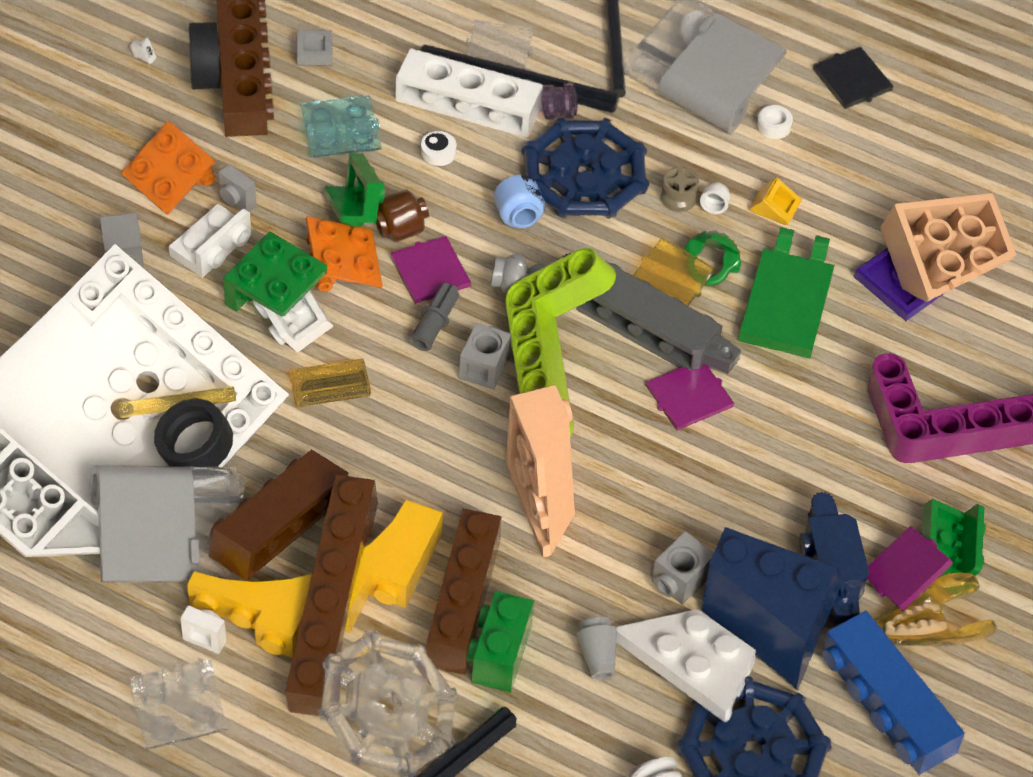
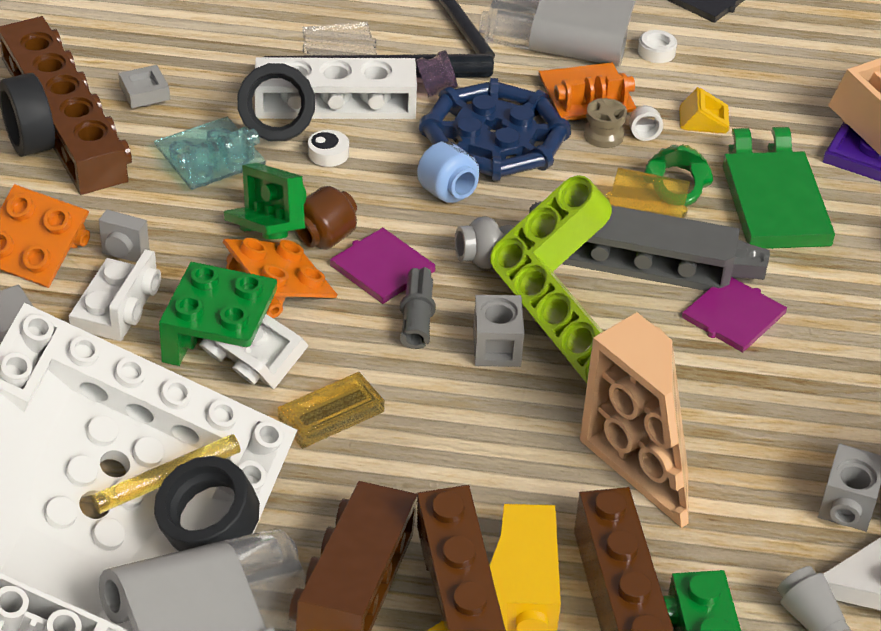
camera: 20 degrees left, 10 degrees down
(380, 100) = (267, 72): none -> black tyre
(685, 147) = (576, 87): none -> orange hinge

